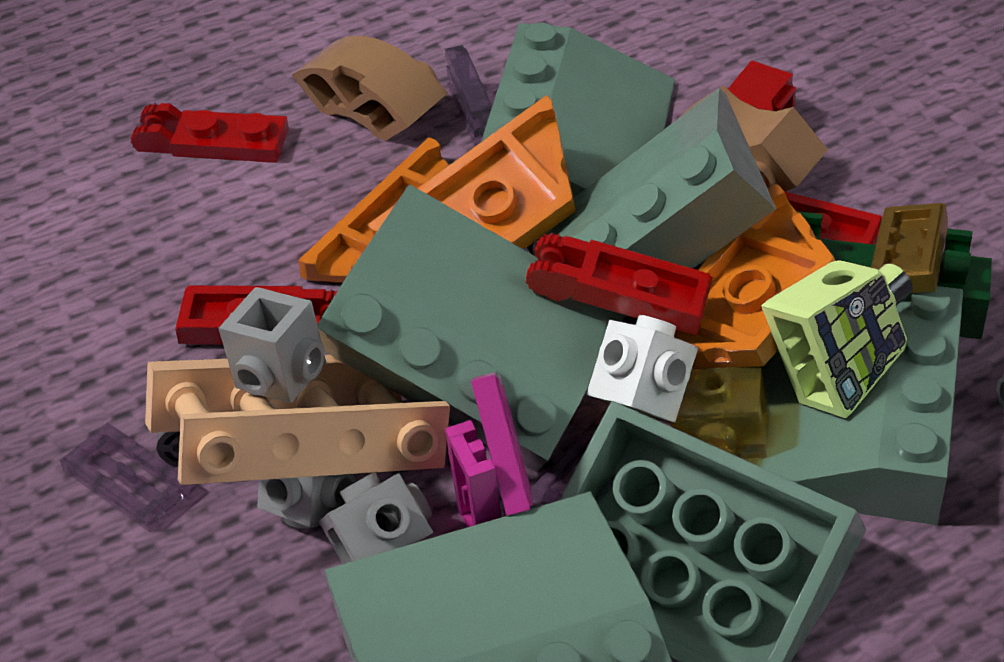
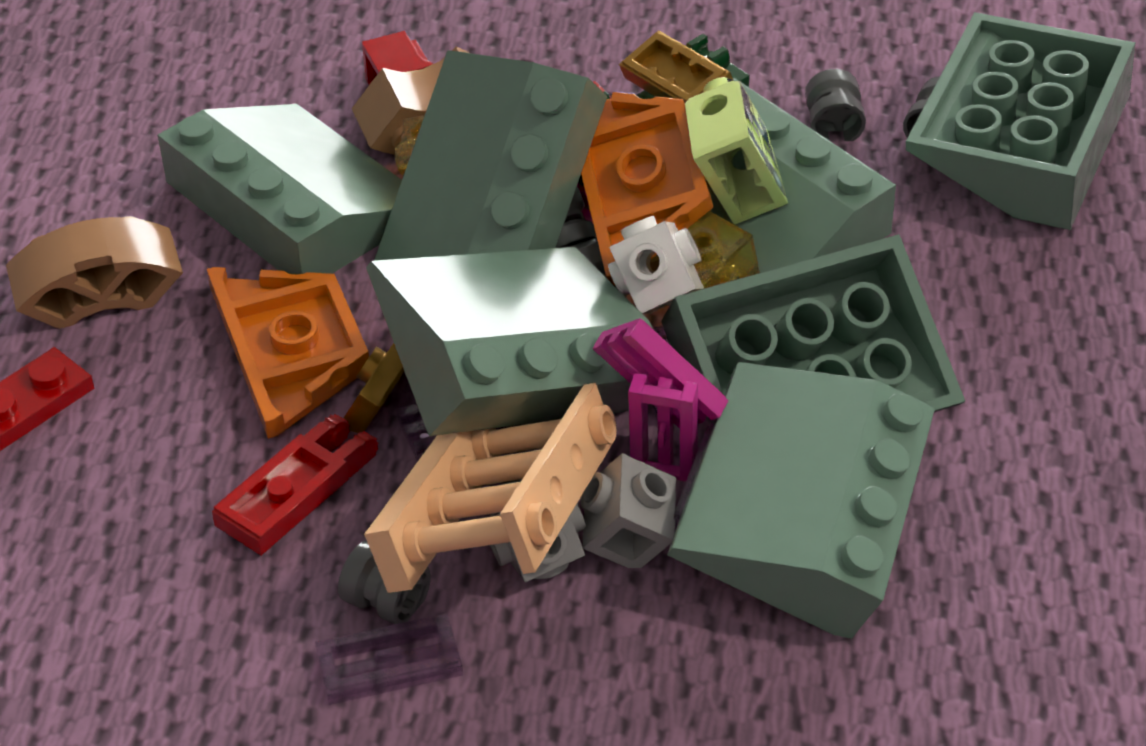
camera: 55 degrees left, 0 degrees up
(273, 344) = (451, 437): light grey brick -> none
(467, 92) = (192, 221): clear purple tile -> none
(510, 180) = (347, 229): orange wing -> none
(619, 281) = (571, 222): red hinge -> none

